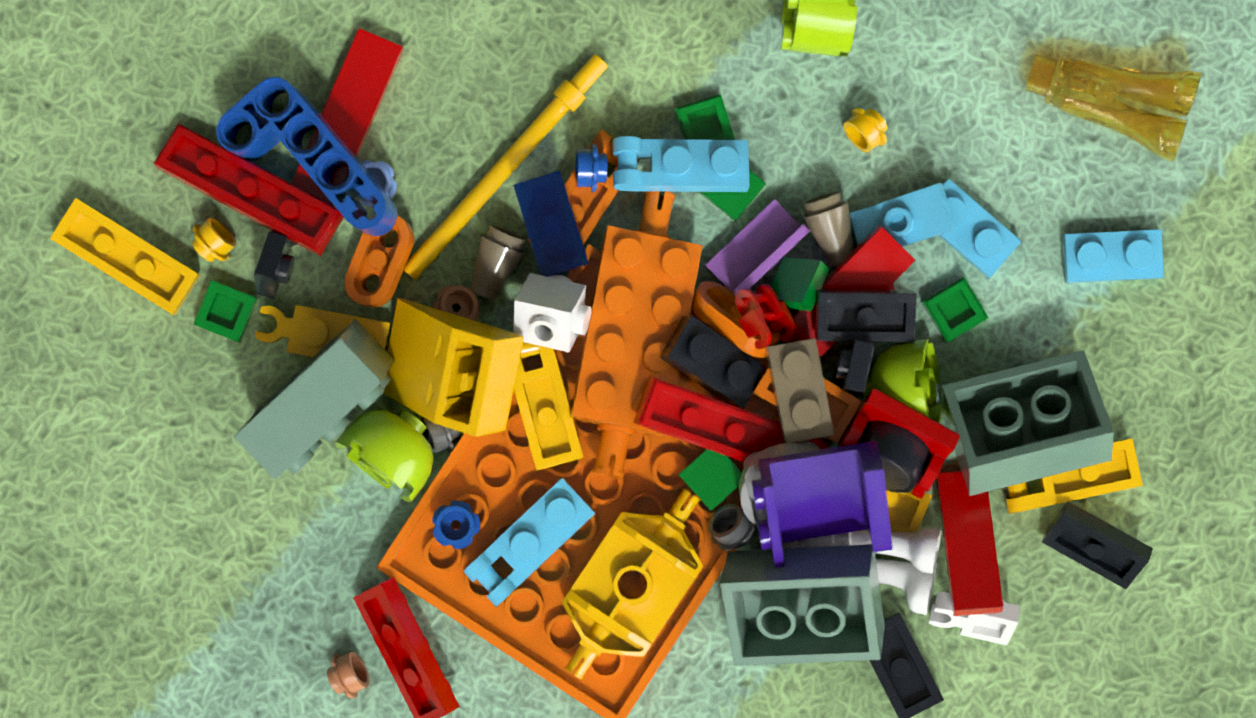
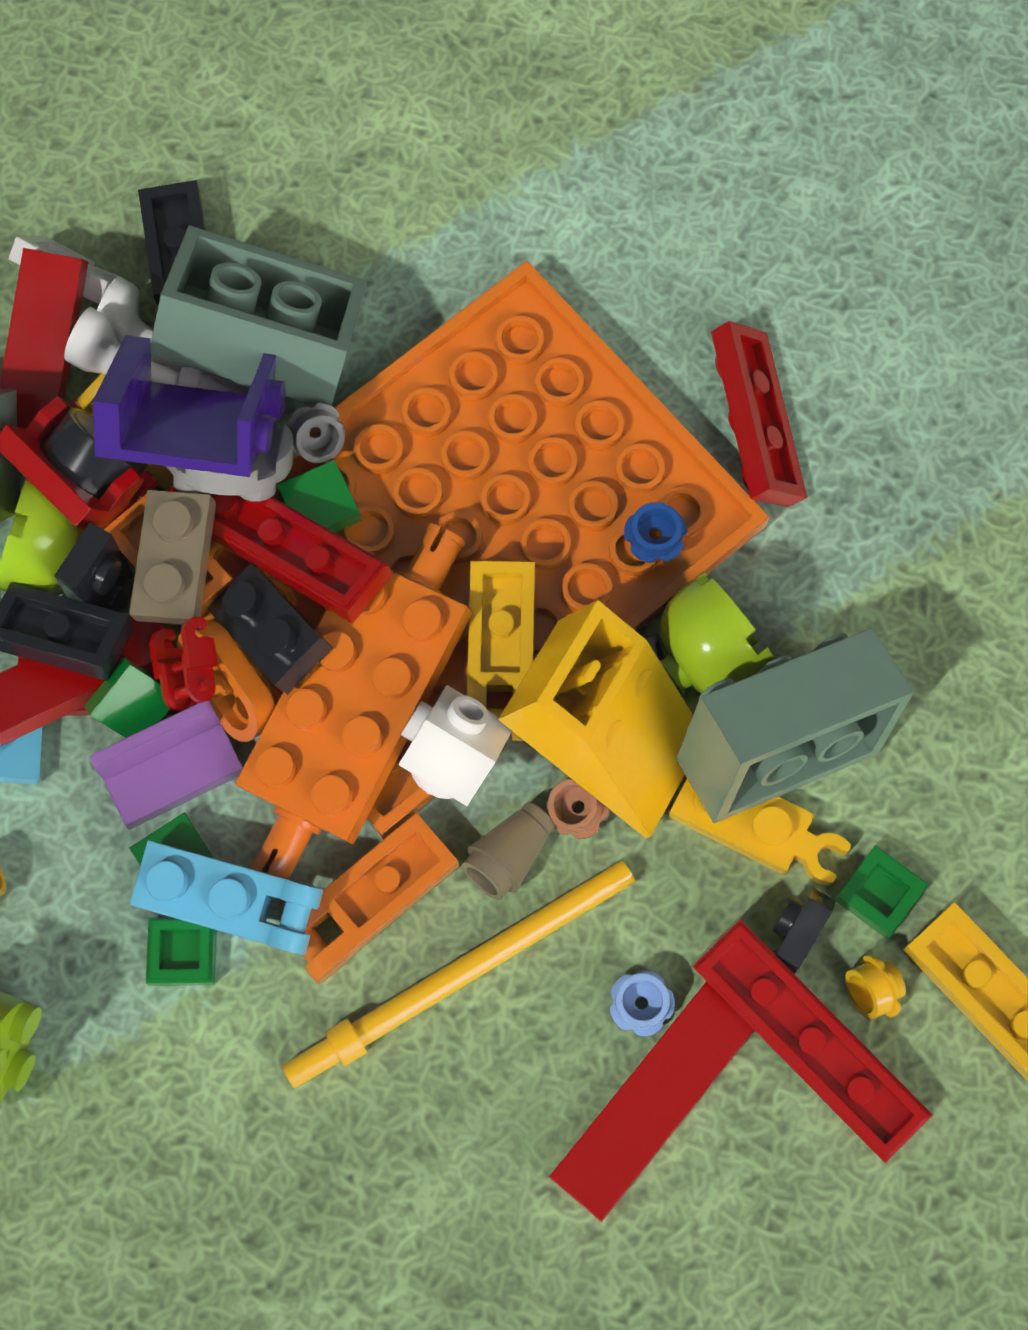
camera: 165 degrees left, 15 degrees down
(317, 161) = (711, 1038): blue beam -> none
(348, 674) = (836, 410): nougat plate -> none
(375, 259) = (659, 897): orange plate -> none
(531, 540) = (568, 490): medium azure plate -> none
(551, 224) = (420, 865): clear blue plate -> none
(590, 167) = (345, 925): blue plate -> none
(639, 543) = (435, 445): yellow plate -> none
(830, 225) = (65, 773): dark tan cone -> none

